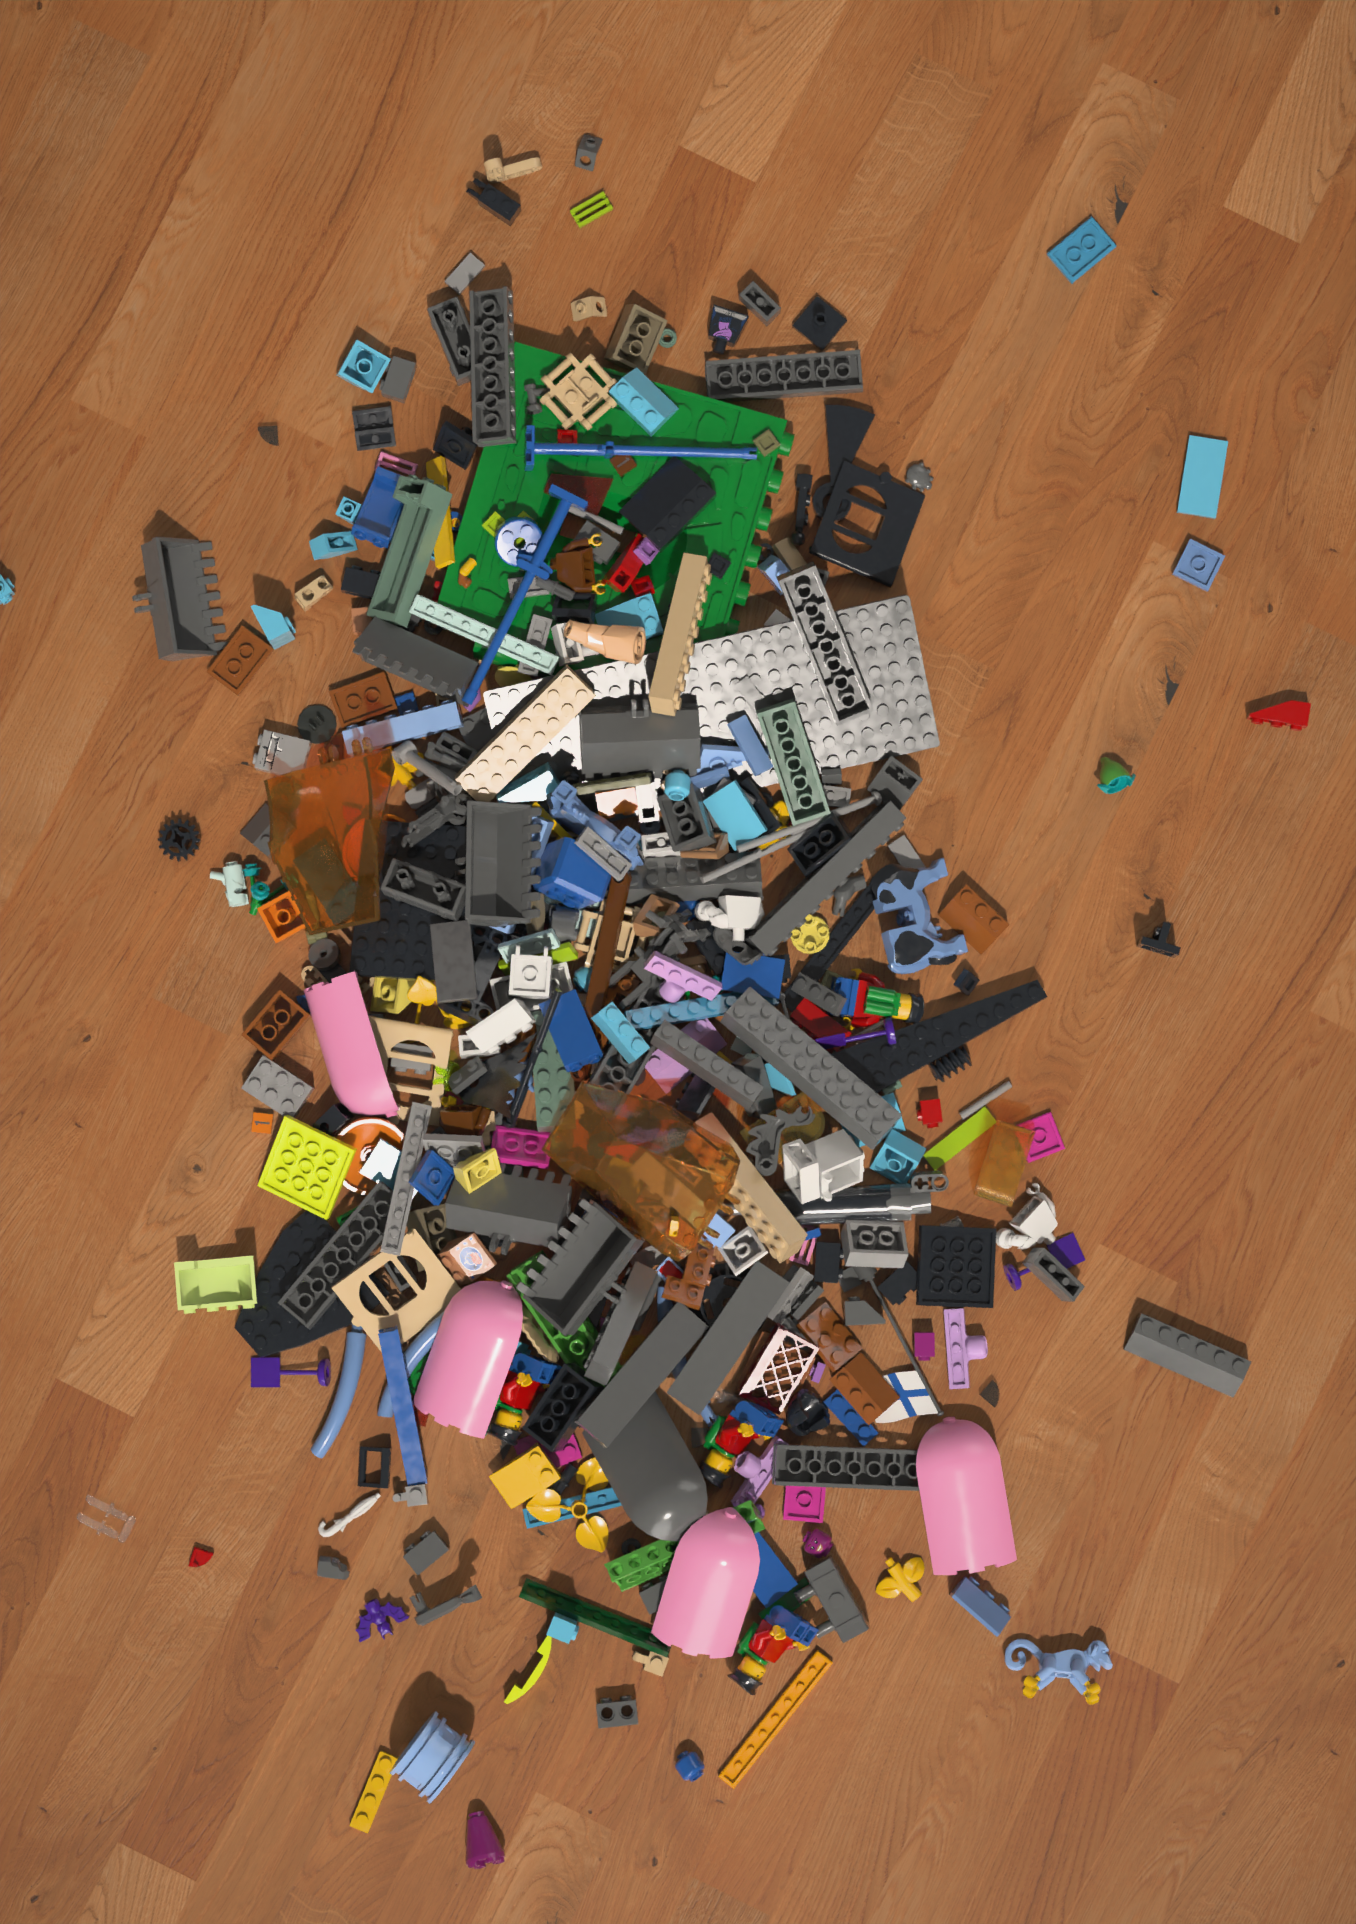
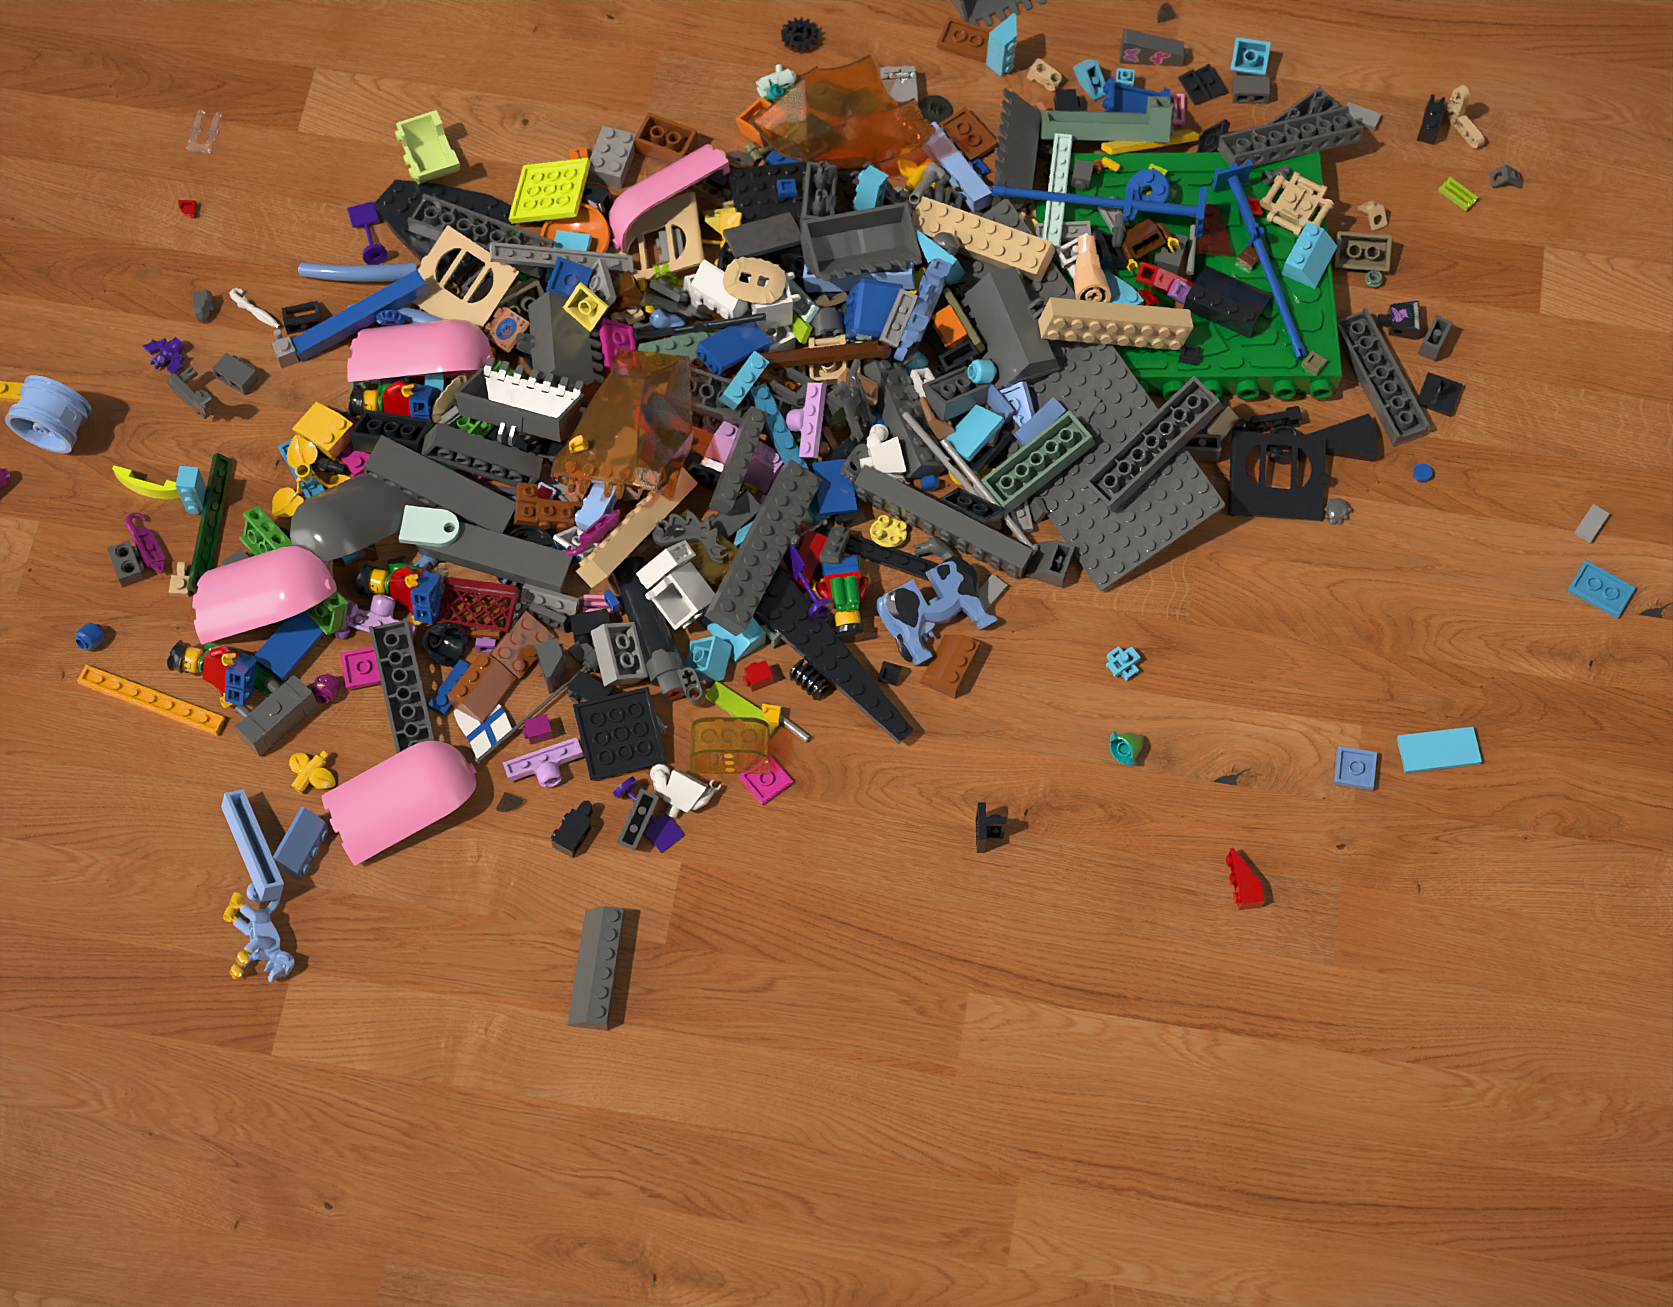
camera: 70 degrees right, 20 degrees down
(318, 467) = (1150, 49): none -> dark grey slope
(394, 917) = (786, 188): none -> blue tile
(417, 1375) = (390, 318): none -> blue gear
(437, 834) = (870, 189): none -> medium azure brick
(473, 602) = (1082, 175): none -> dark grey brick
(504, 981) = (751, 291): none -> tan piece
(526, 774) = (947, 242): none -> dark grey hair
(558, 1345) = (450, 416): none -> light grey axle
(600, 1687) = (146, 543): none -> magenta plate
(684, 1399) = (427, 526): none -> light aqua tile
(746, 1233) = (595, 532): none -> magenta plate
(769, 875) = (929, 483): none -> blue tile
(903, 375) = (1422, 473): none -> blue tile
(970, 1653) = (252, 845): none -> light blue brick
(976, 1111) = (771, 713): none -> yellow tile
(1009, 230) = (1591, 523): none -> light grey tile
(1022, 749) = (1124, 660): none -> medium azure piece
(1041, 1338) = (573, 830): none -> black hinge

